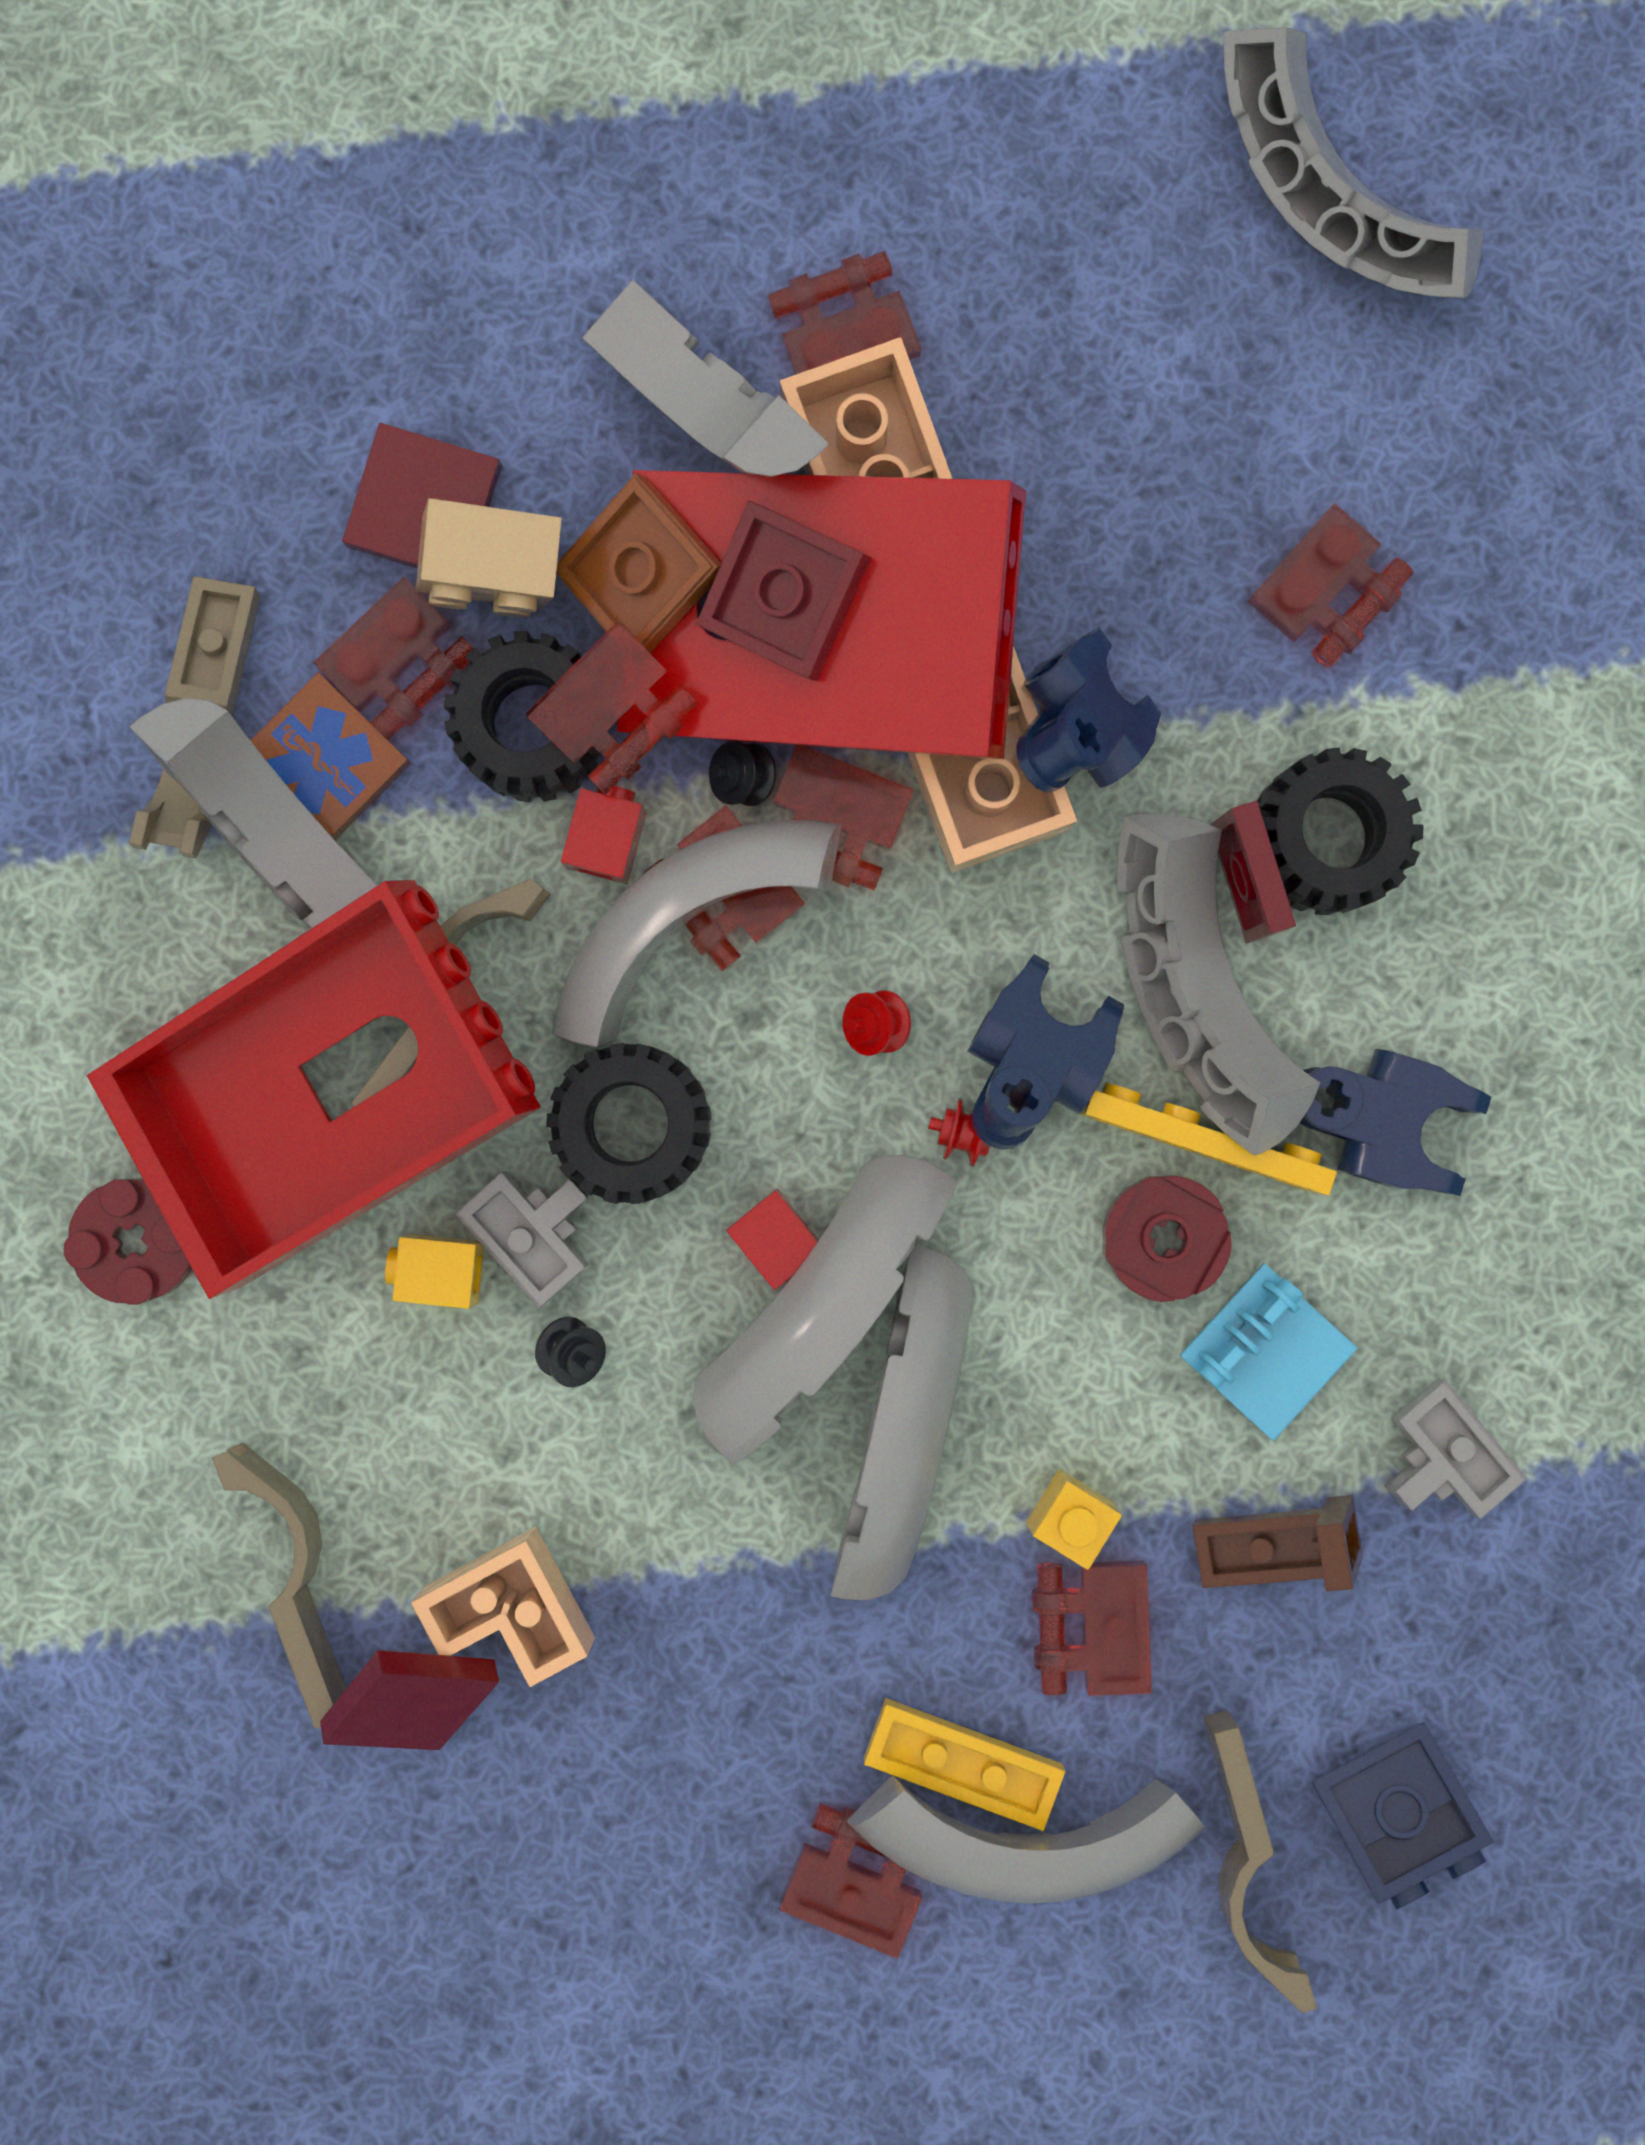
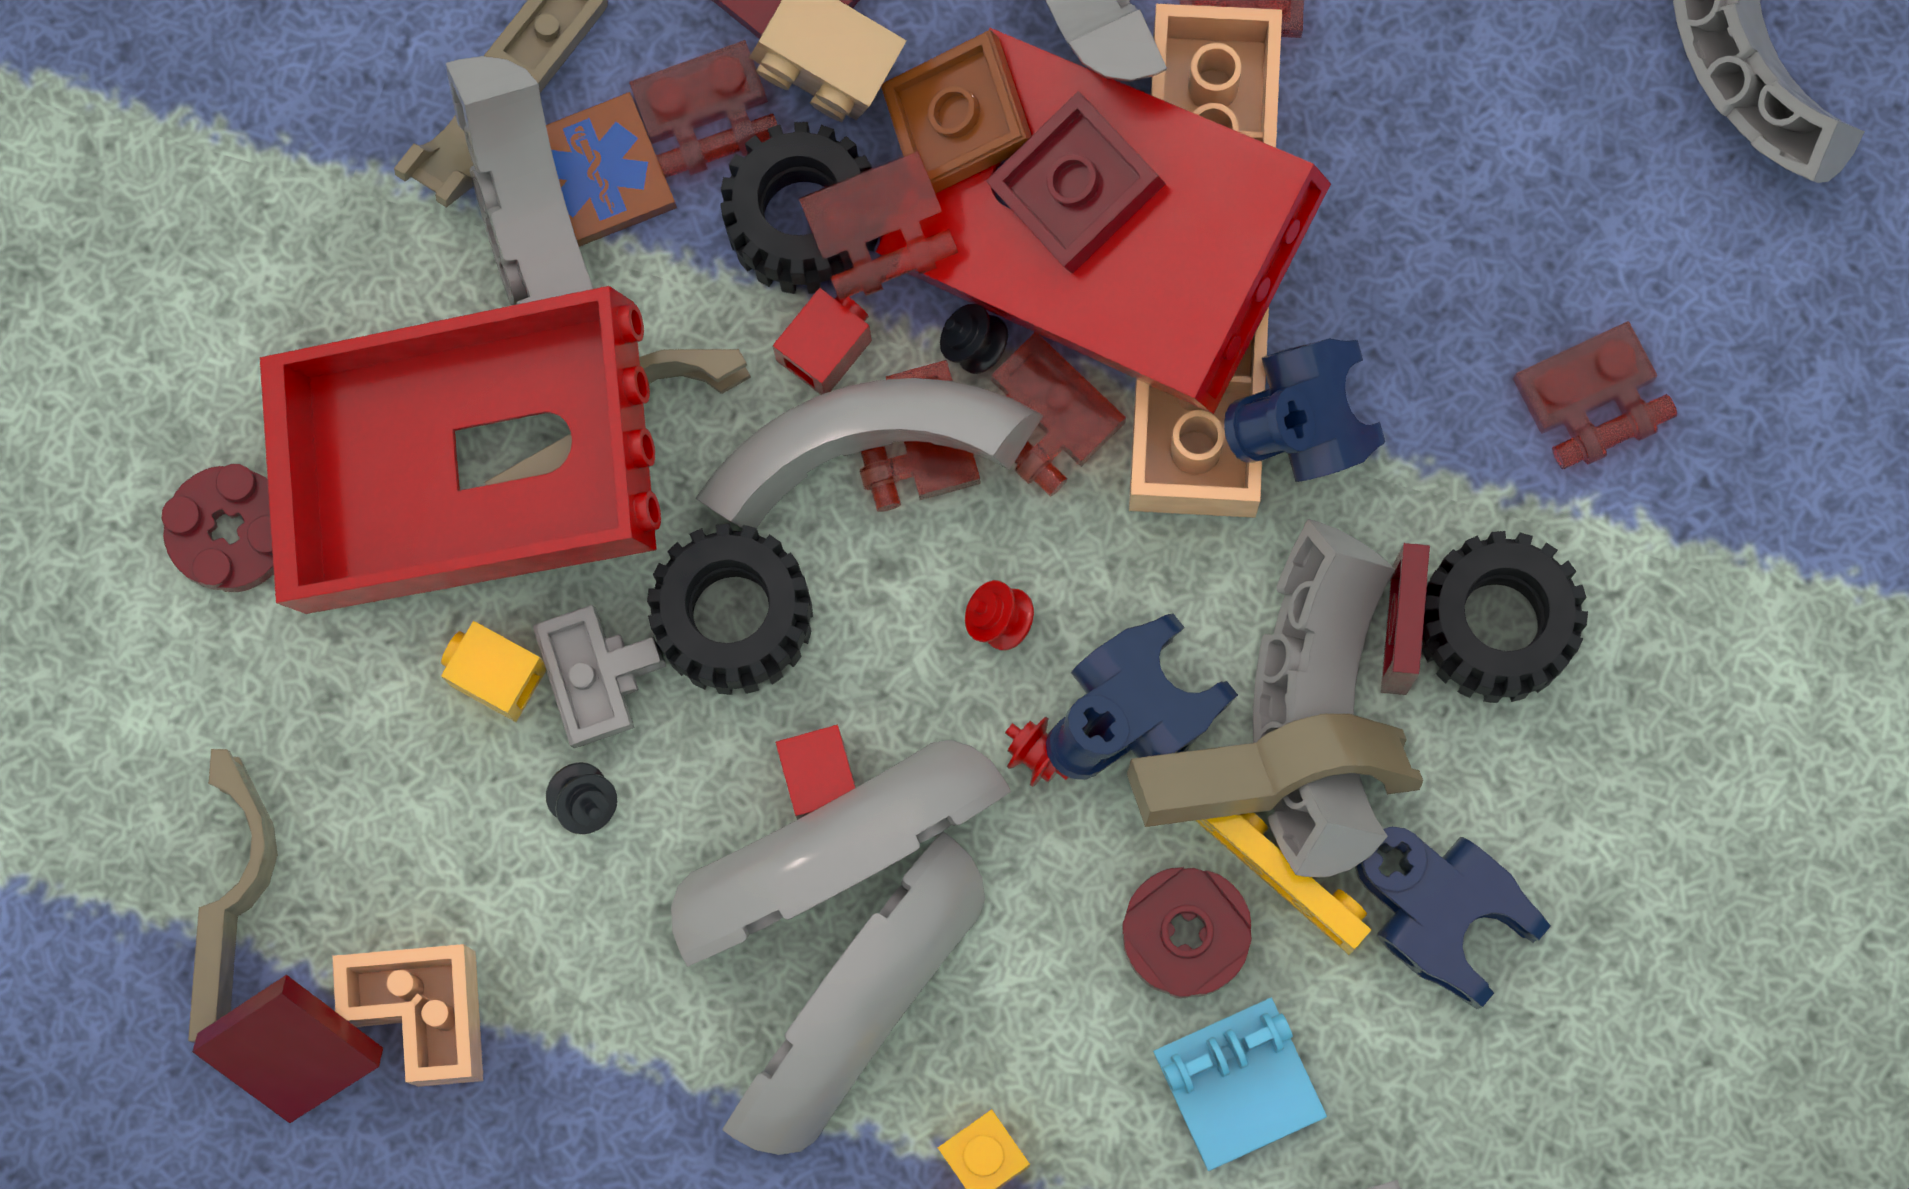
camera: 30 degrees right, 10 degrees down
(1186, 1067) = (1262, 773): none -> dark tan piece

